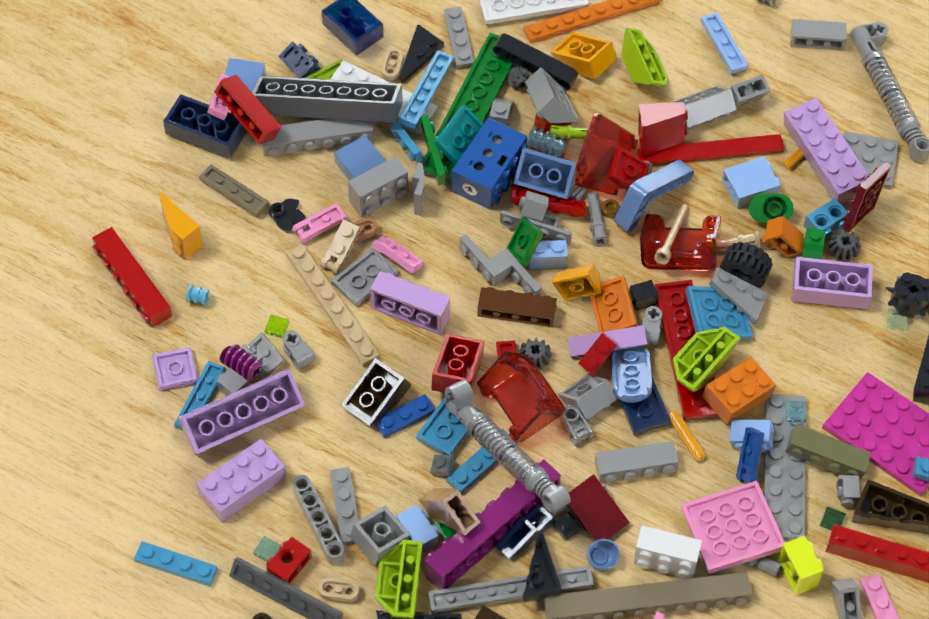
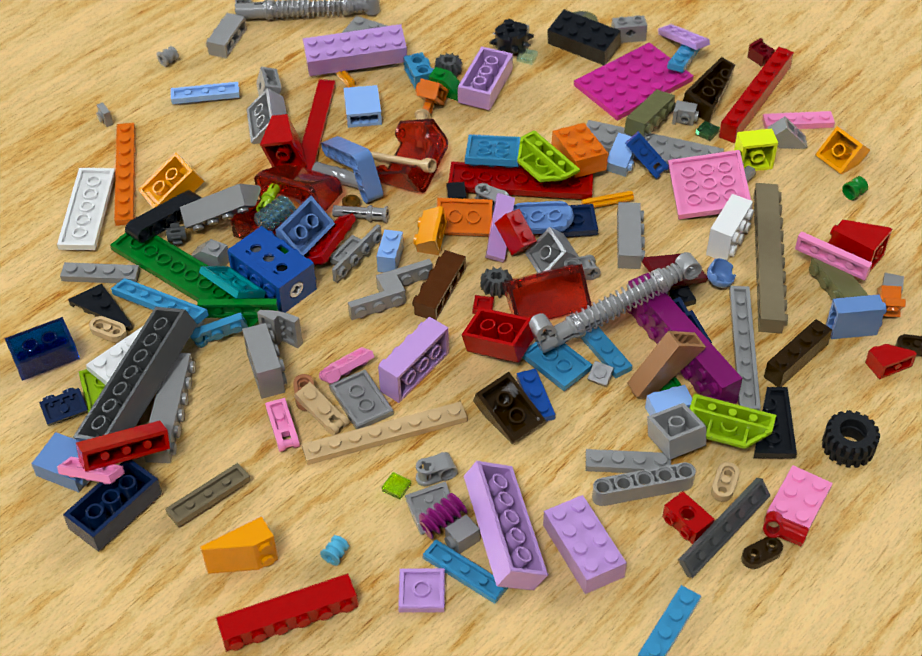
camera: 75 degrees left, 10 degrees down
(266, 549) = (666, 538): clear light blue tile -> none
(289, 213) = (259, 452): black plate -> none
(357, 158) = (224, 374): medium blue brick -> none
(524, 241) = (375, 257): green tile -> none
(533, 206) = (339, 242): light grey brick -> none
(542, 576) = (741, 315): black wing -> none
(627, 168) = (328, 169): red tile -> none
(642, 59) = (202, 145): lime wedge -> none
(744, 295) = (476, 132): light grey wing -> none
(747, 263) = (456, 118): black tyre -> none
(770, 206) = (398, 95): green piece -> none
(795, 411) = (607, 122): clear light blue plate -> none
(866, 196) = (418, 29): dark red plate -> none

